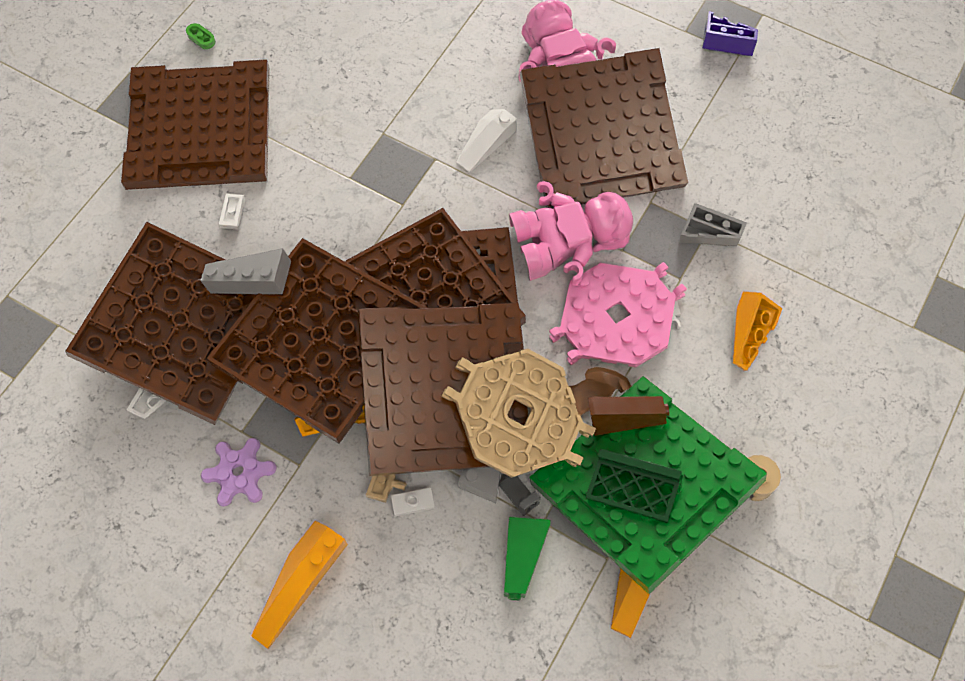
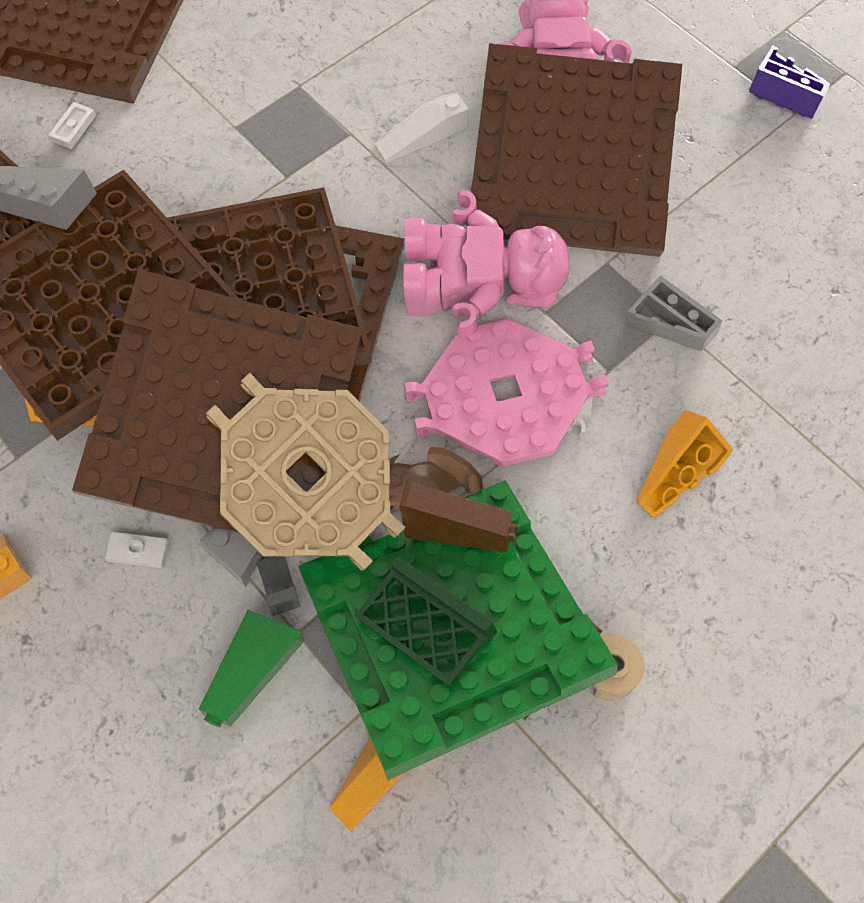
camera: 15 degrees right, 0 degrees up
(381, 486) = (104, 516): tan plate -> none

